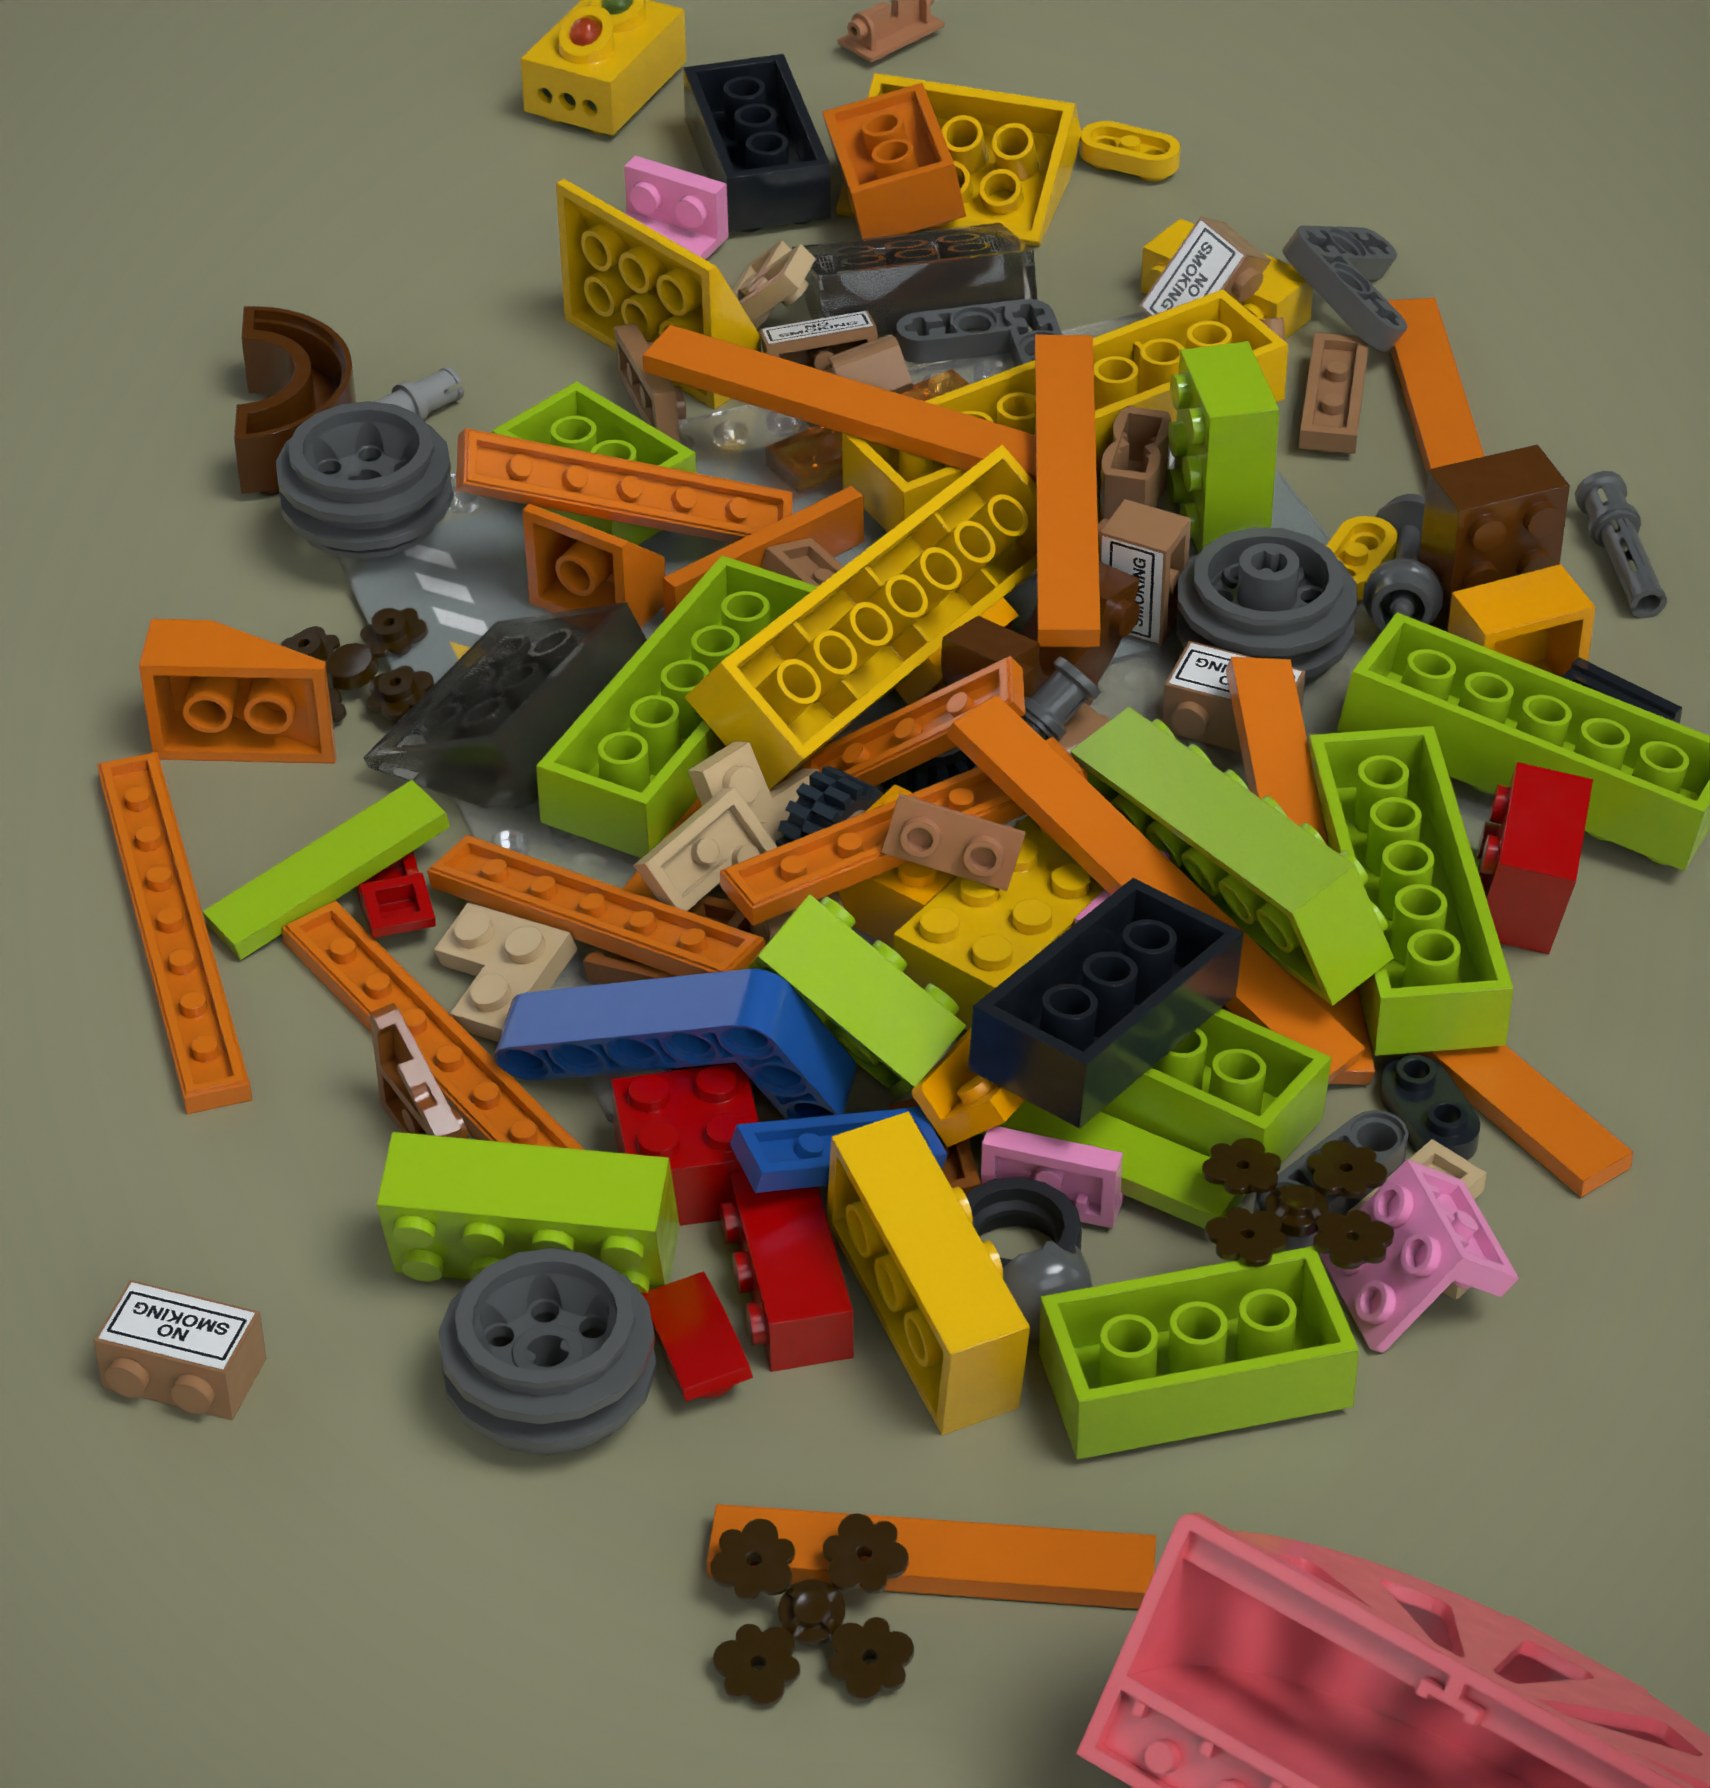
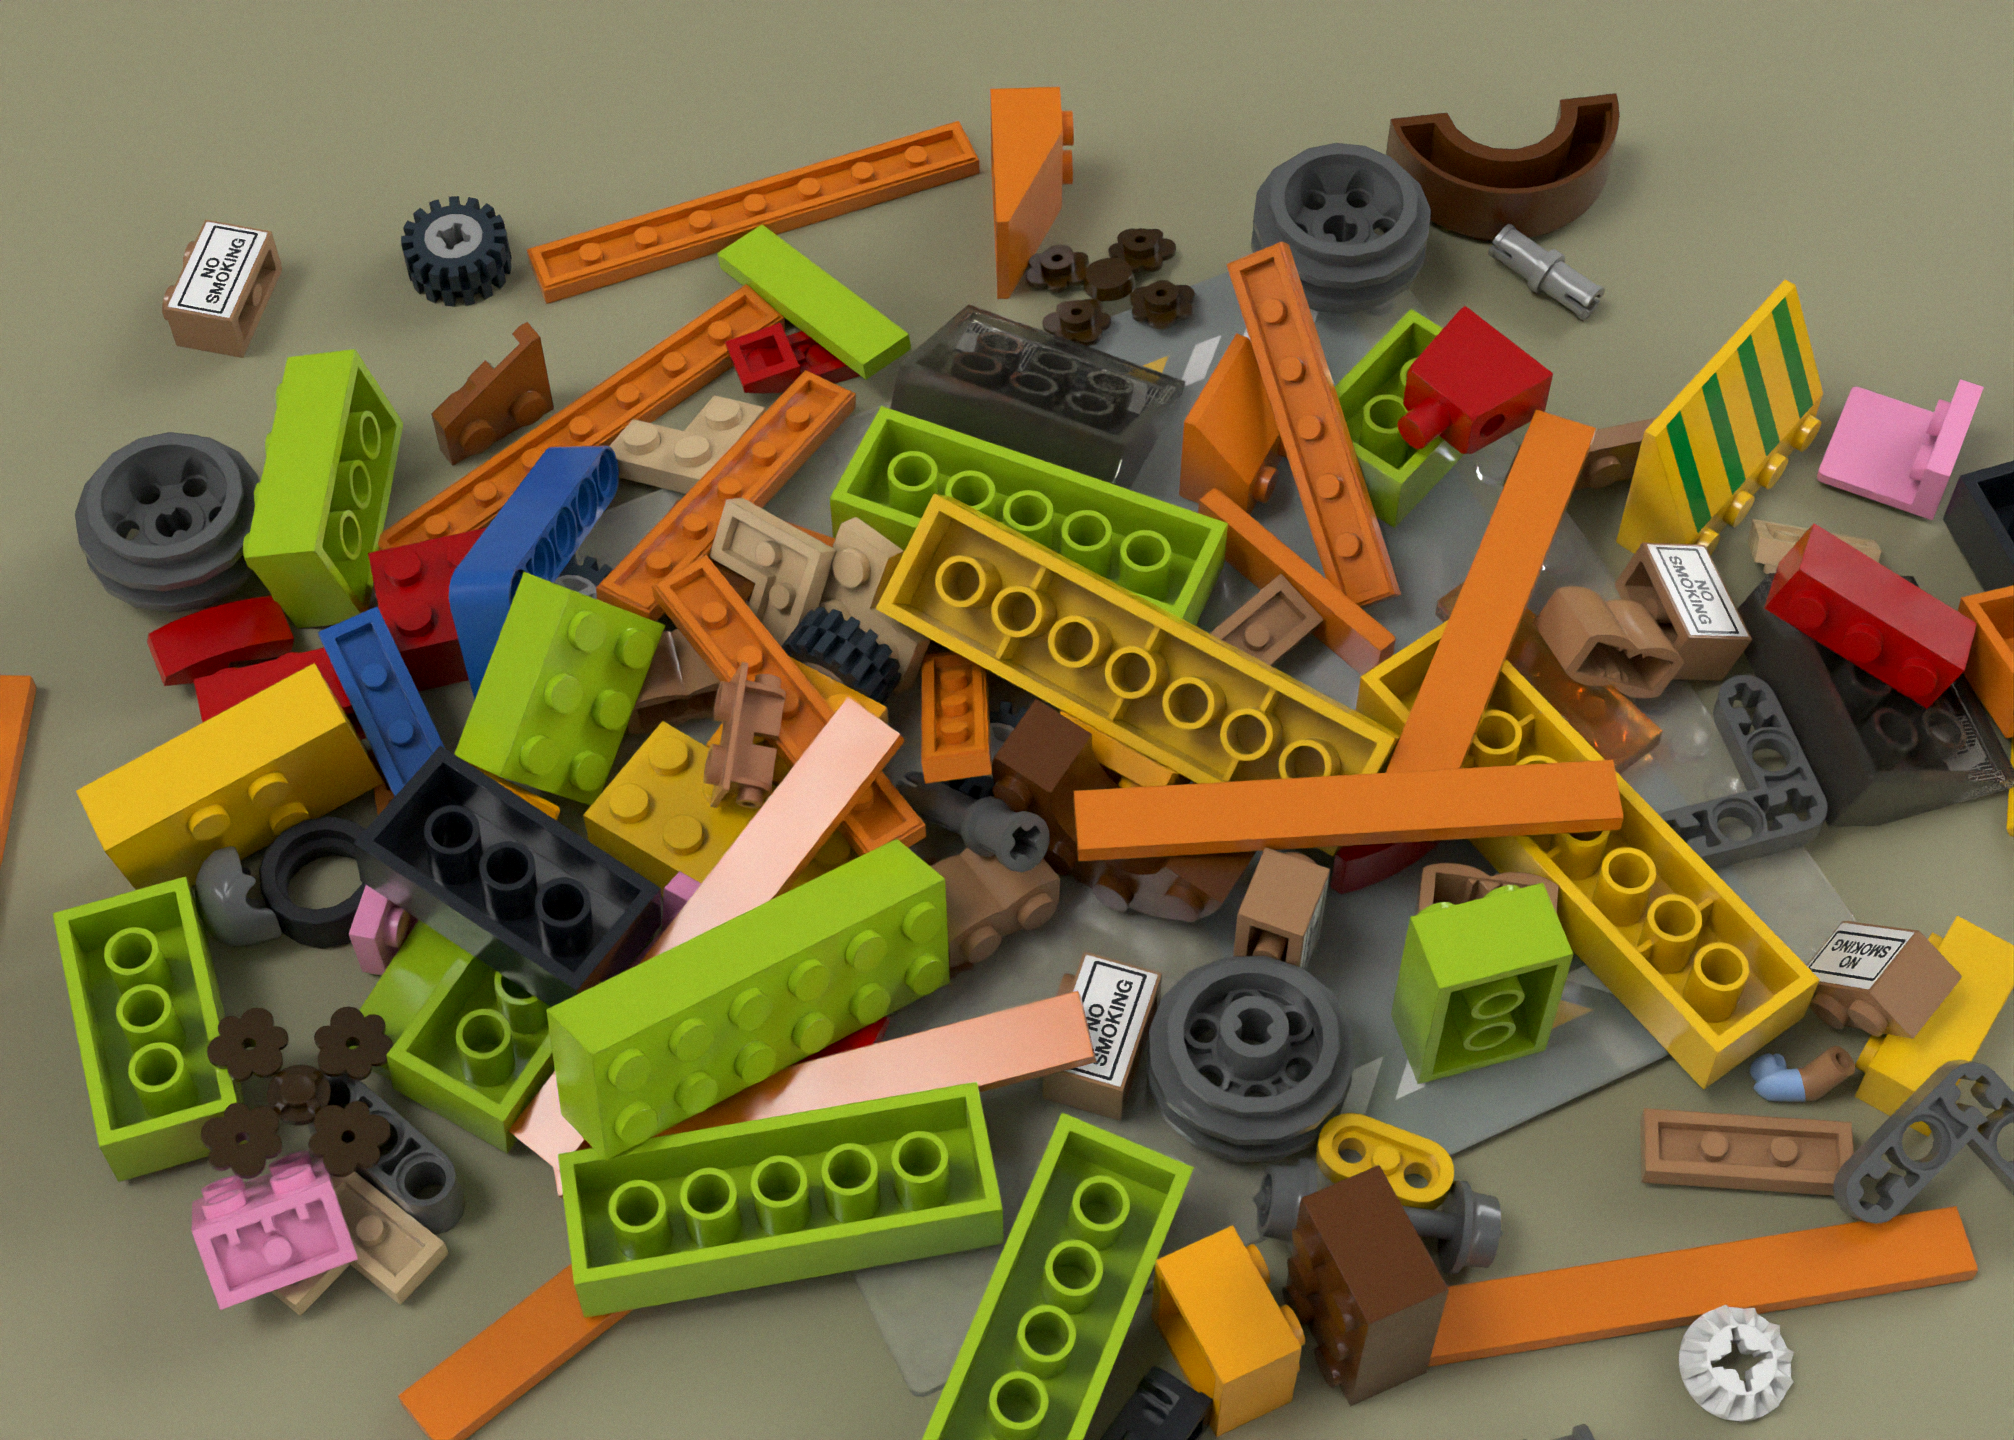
camera: 85 degrees right, 15 degrees up
(173, 1153) = (456, 251): none -> black wheel
(608, 385) = (1471, 387): none -> red torso
(871, 230) = (1871, 616): none -> red brick
(1429, 1105) = (520, 1257): black plate -> none
(1515, 418) = (1722, 1390): none -> white gear
(1533, 853) = (828, 1326): red piece -> none

